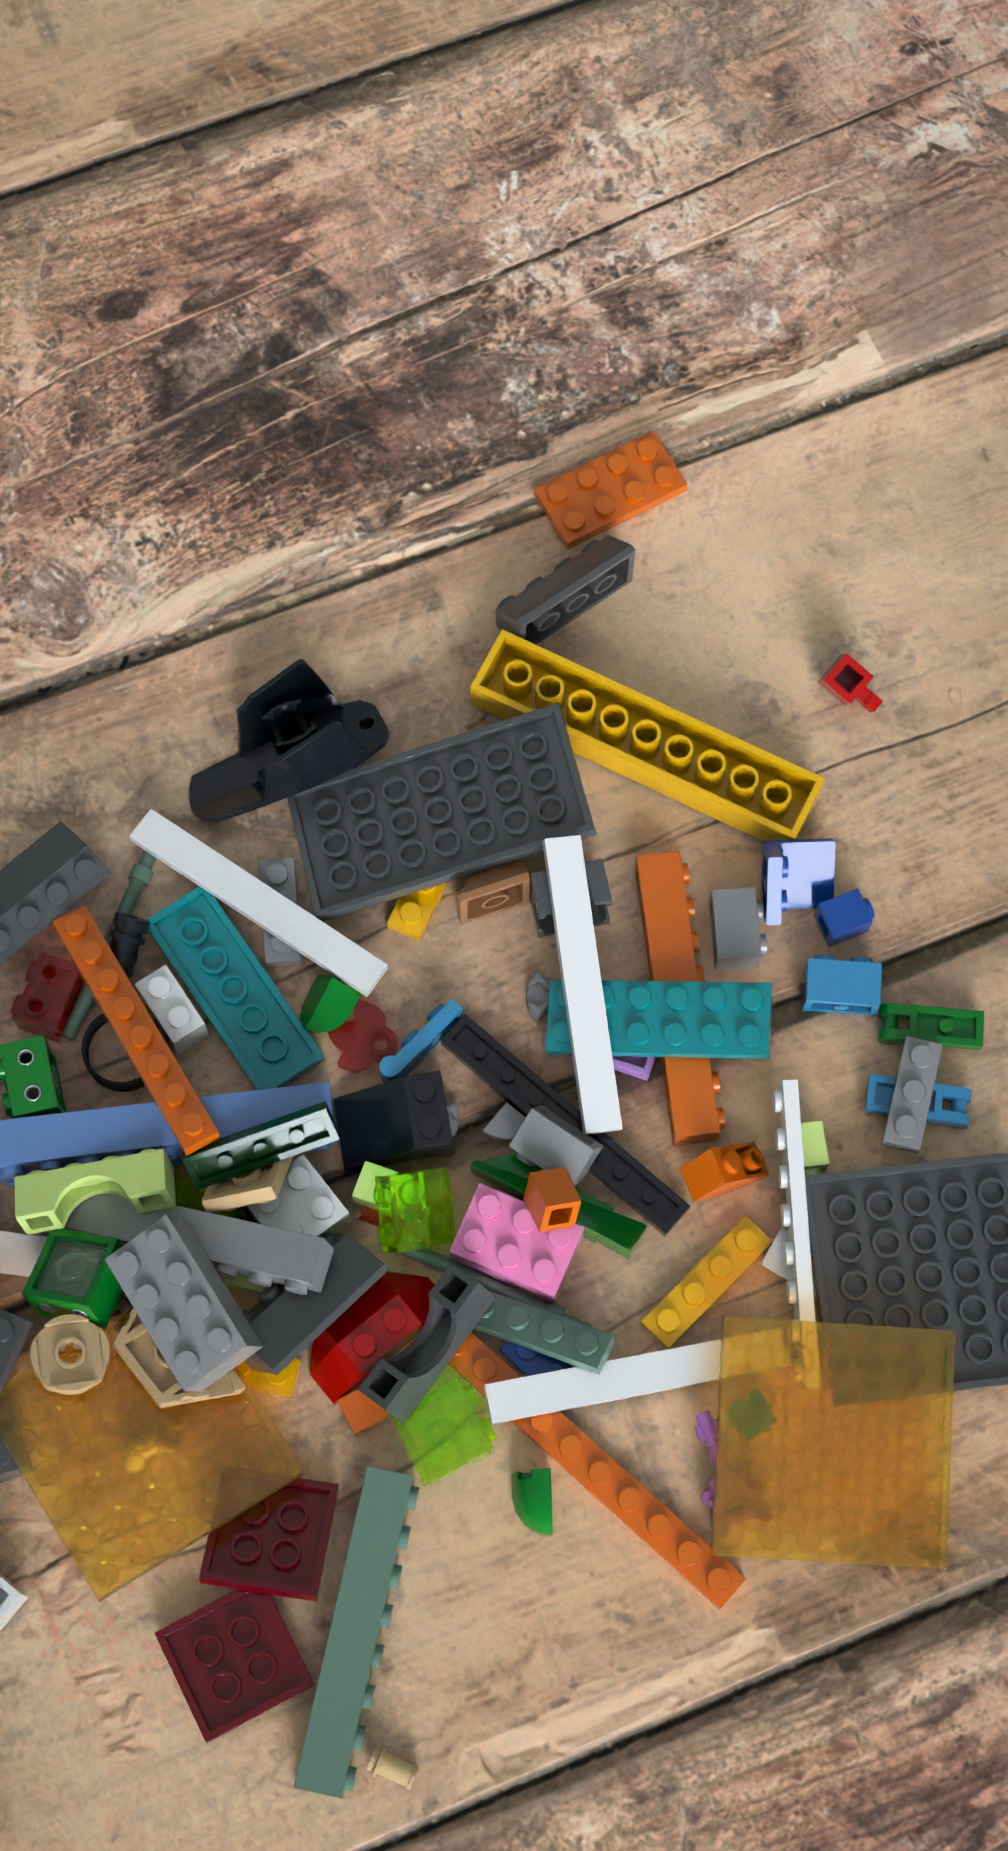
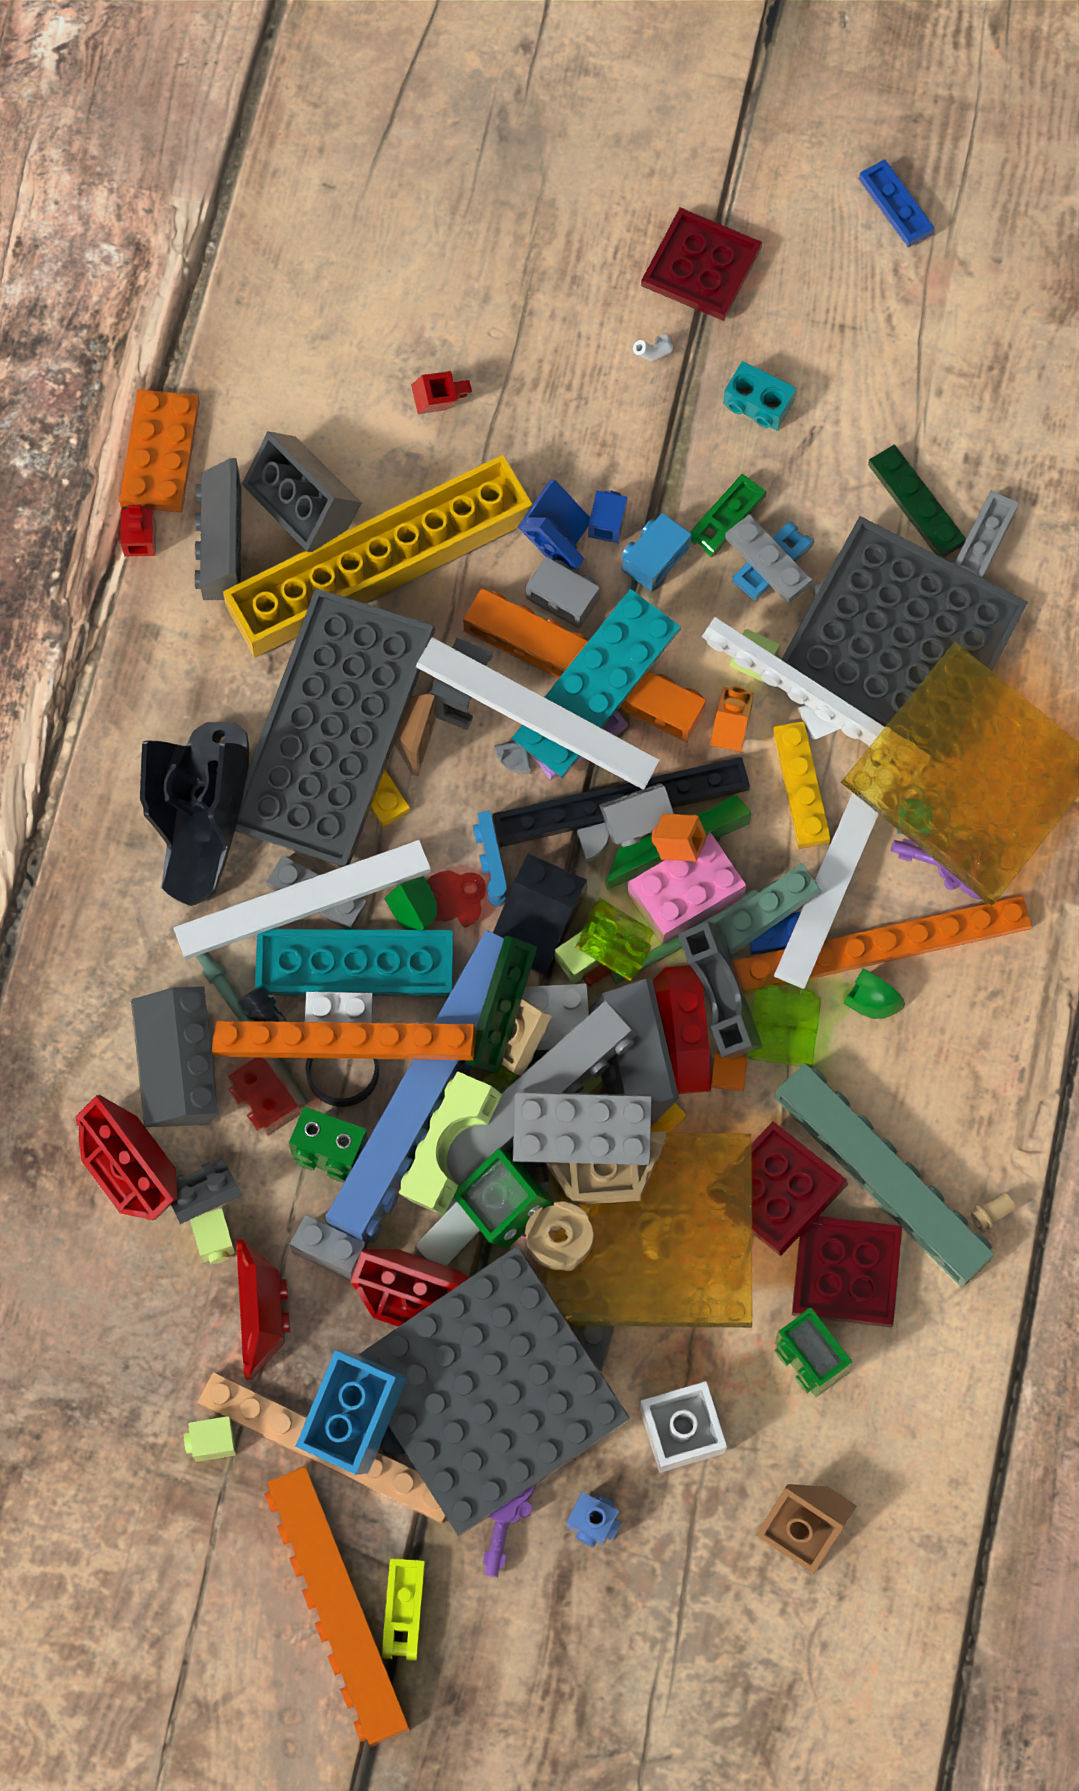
camera: 55 degrees left, 0 degrees up
(119, 1680) = (812, 1353): none -> green piece
(515, 523) = (138, 531): none -> red brick
(653, 629) = (300, 491): none -> dark grey slope

